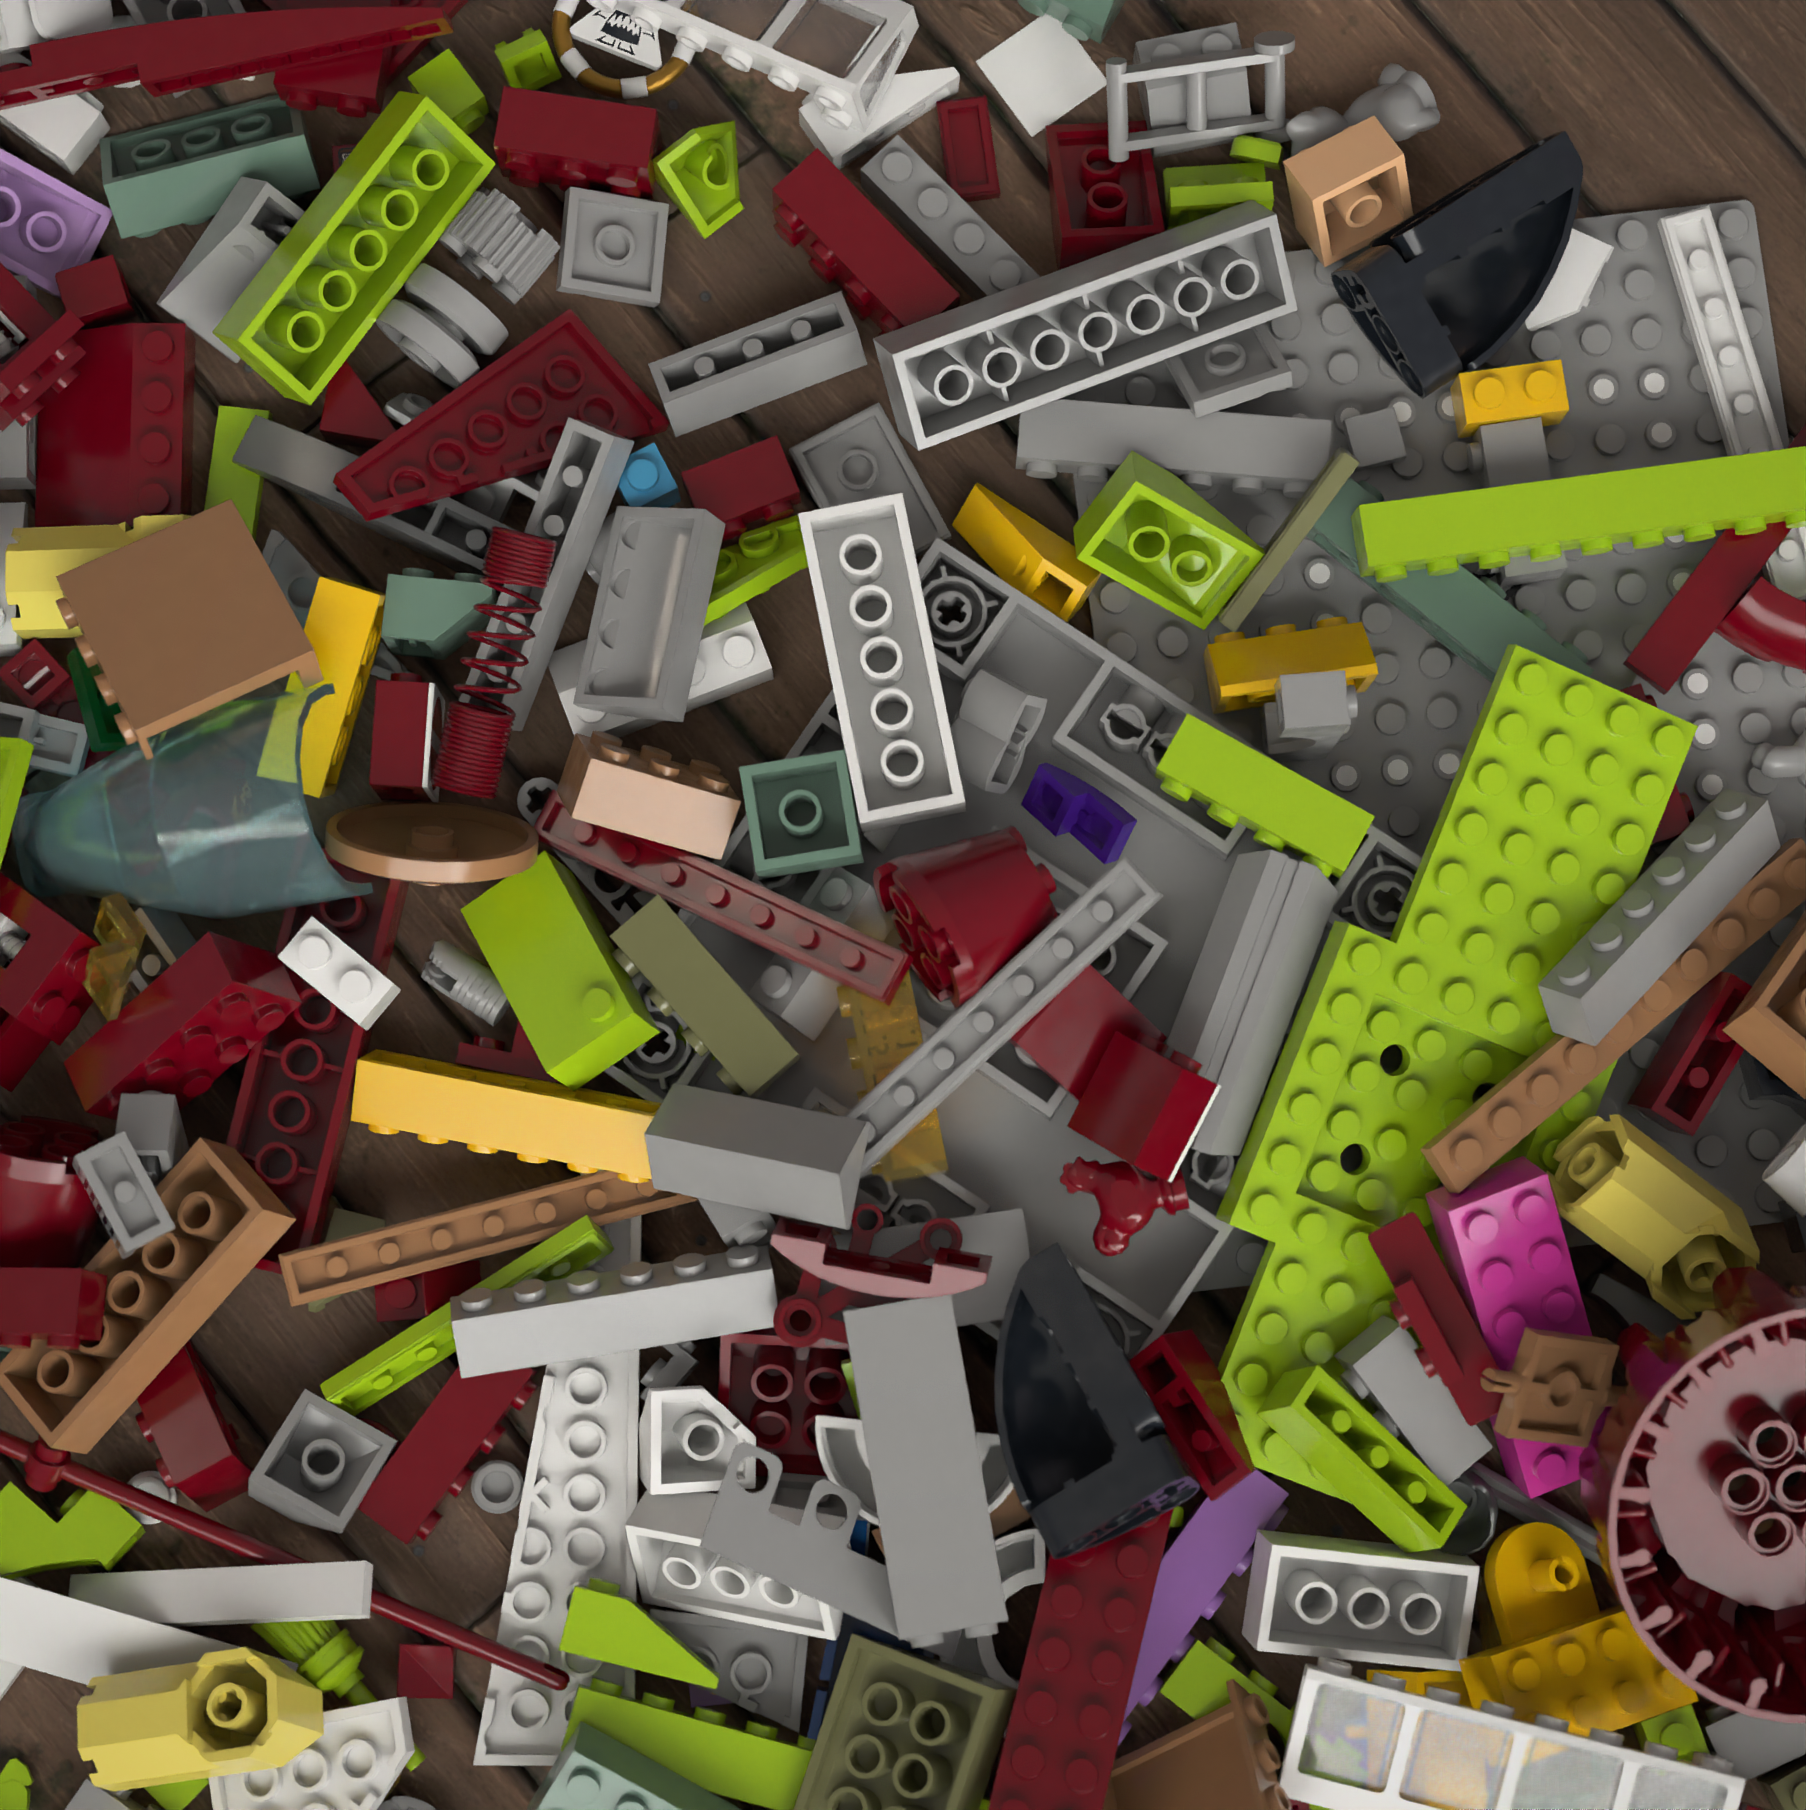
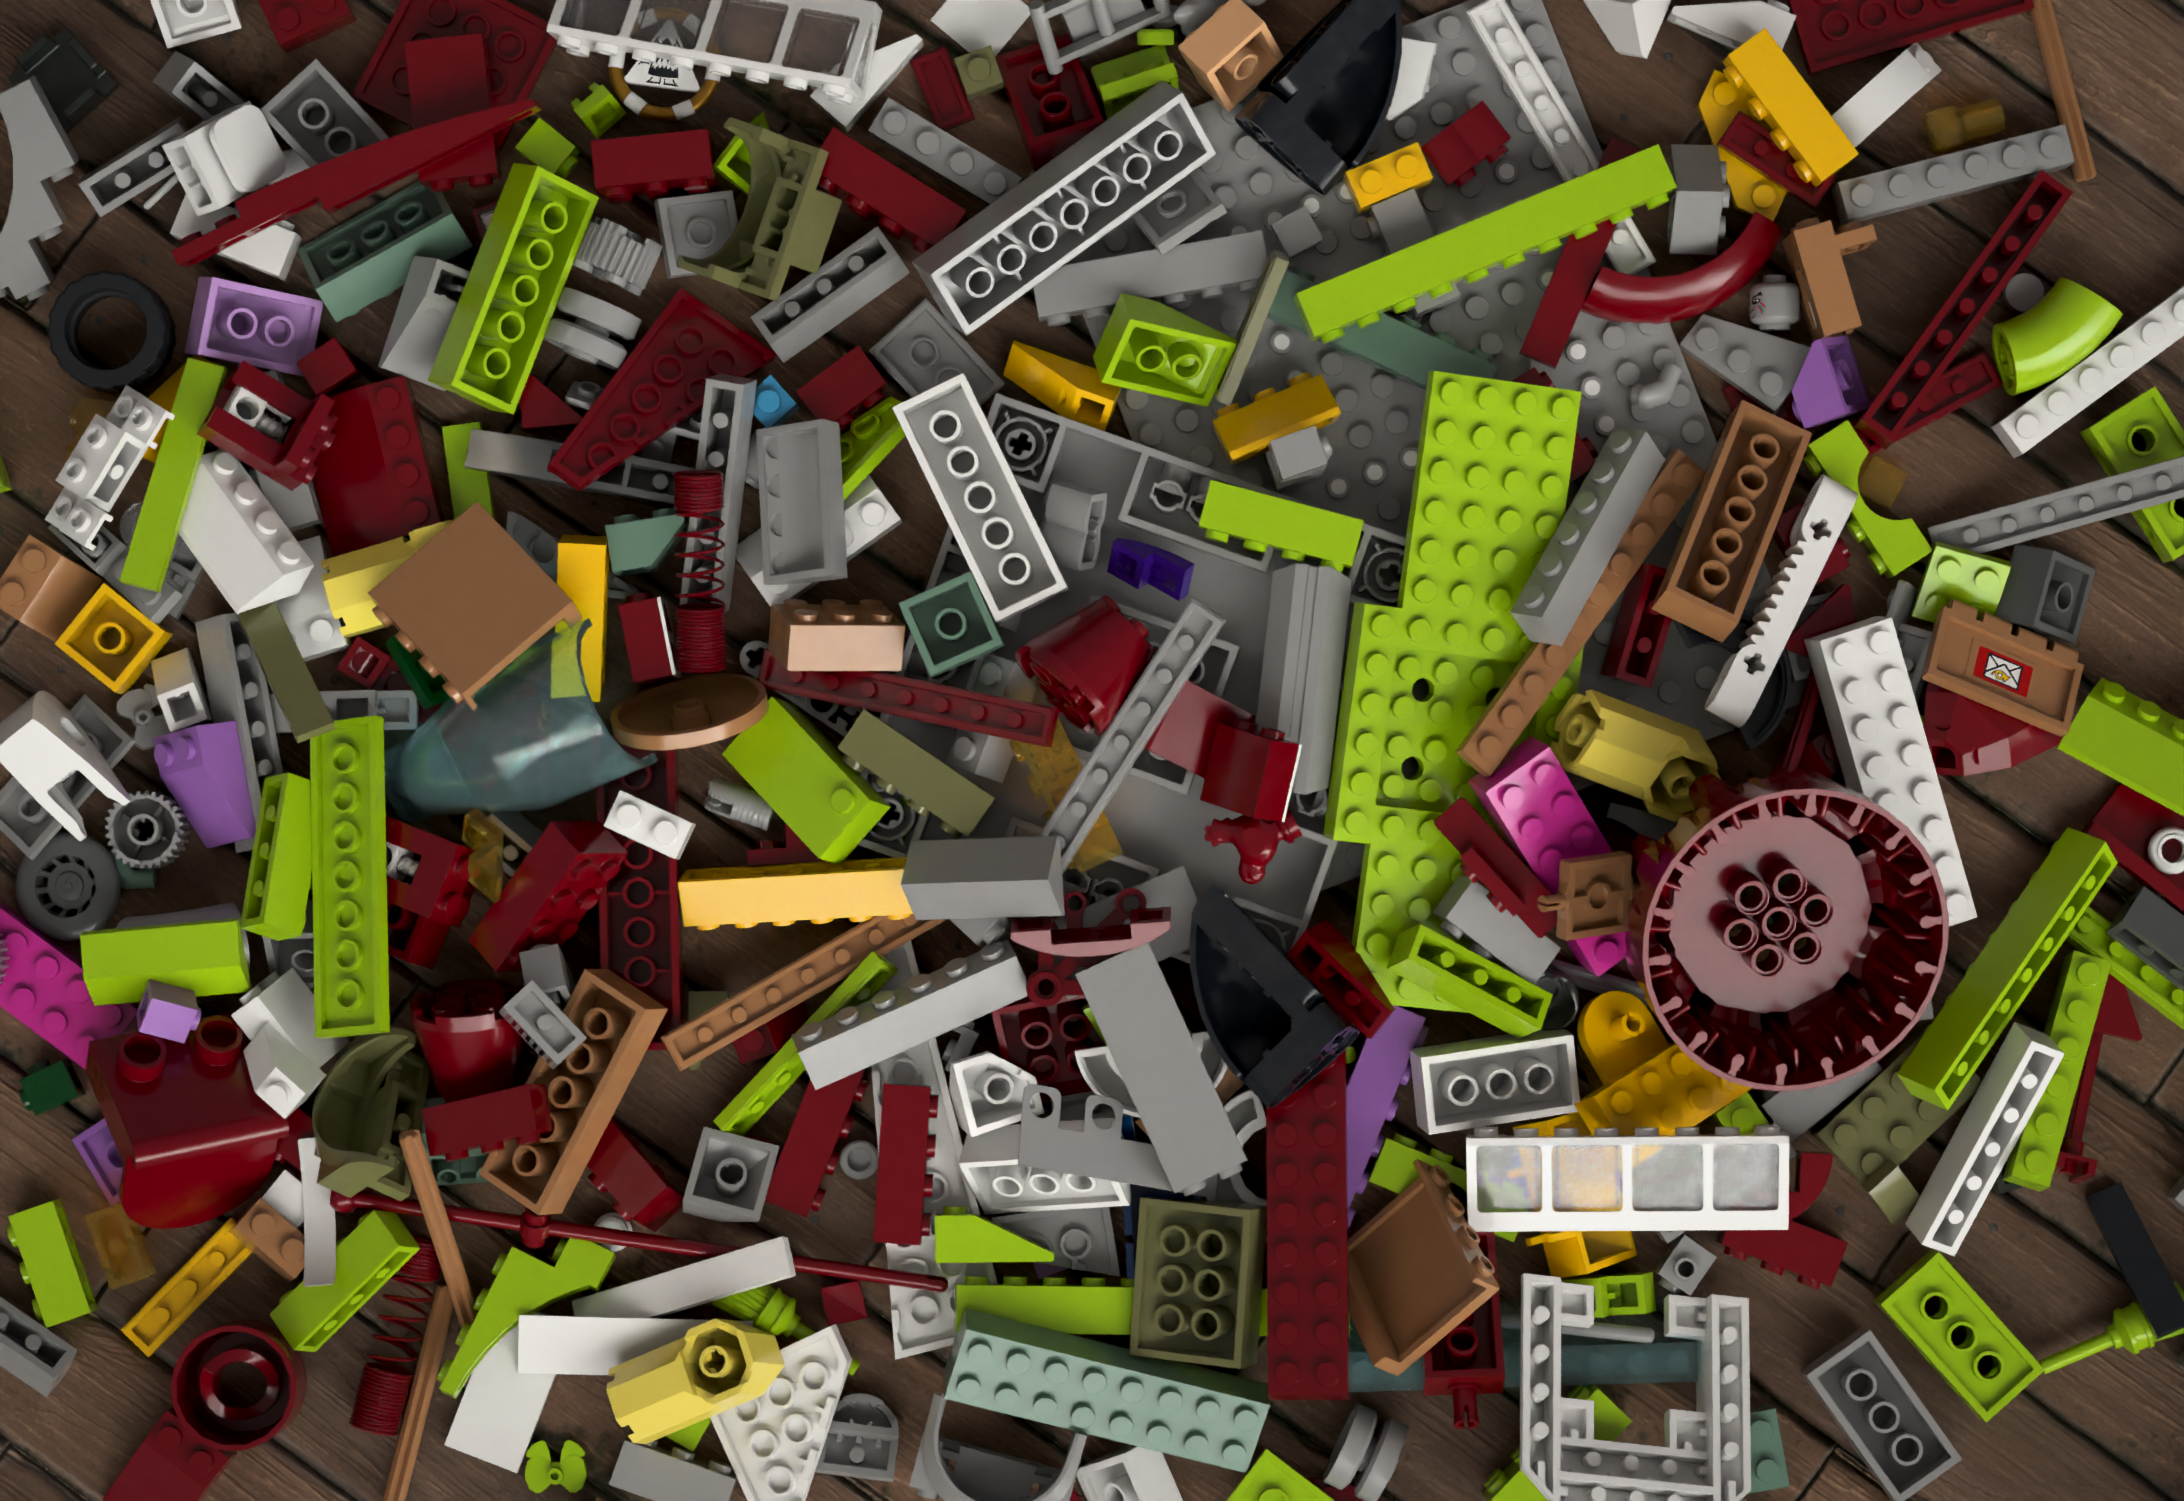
camera: 15 degrees left, 5 degrees up
(552, 1506) = (903, 1164): none -> dark red brick
(726, 249) = (782, 220): none -> olive piece
(1020, 138) = (979, 73): none -> olive brick
(1620, 384) = (1466, 145): none -> dark red brick

